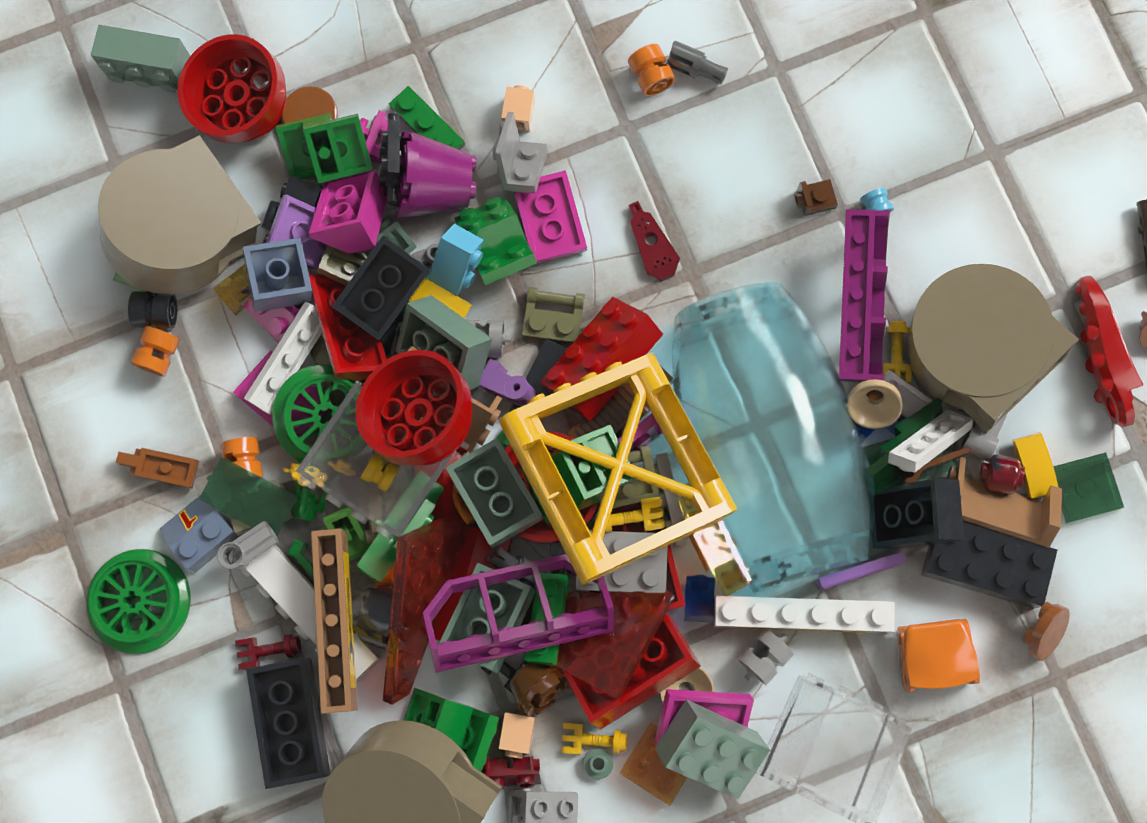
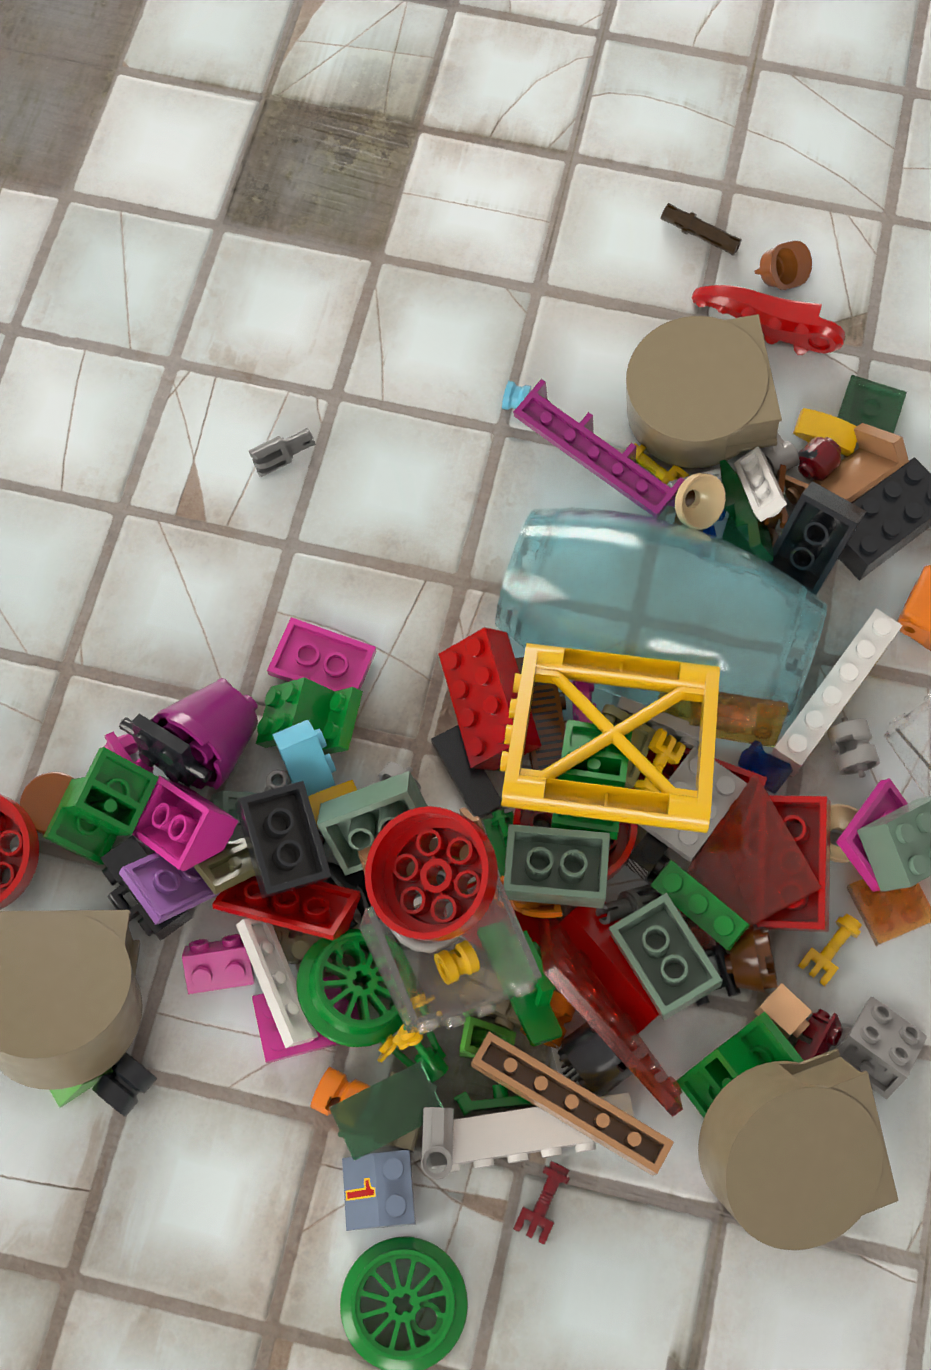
camera: 60 degrees left, 10 degrees down
(159, 342) = (167, 1109): orange wheel -> none
(160, 466) = (285, 1185): dark orange hinge -> none
(234, 290) = (165, 981): clear yellow leg -> none
(277, 274) = (192, 930): sand blue slope -> none
(288, 722) = (635, 1225): black brick -> none
(424, 119) = (146, 703): green plate -> none
(509, 388) = (461, 793): medium lavender leg -> none
(518, 162) = (256, 645): light grey bracket -> none
(519, 639) = (716, 920): magenta plate -> none
(521, 102) = (201, 618): light nougat brick -> none
(550, 324) = (421, 726): olive plate -> none
(608, 763) = (848, 962): sand green plate -> none
(650, 68) = (258, 487): orange wheel -> none
(653, 253) = (422, 597): dark red piece -> none
(815, 197) = (473, 440): reddish brown bracket -> none
(860, 571) = (833, 601): medium lavender tile -> none

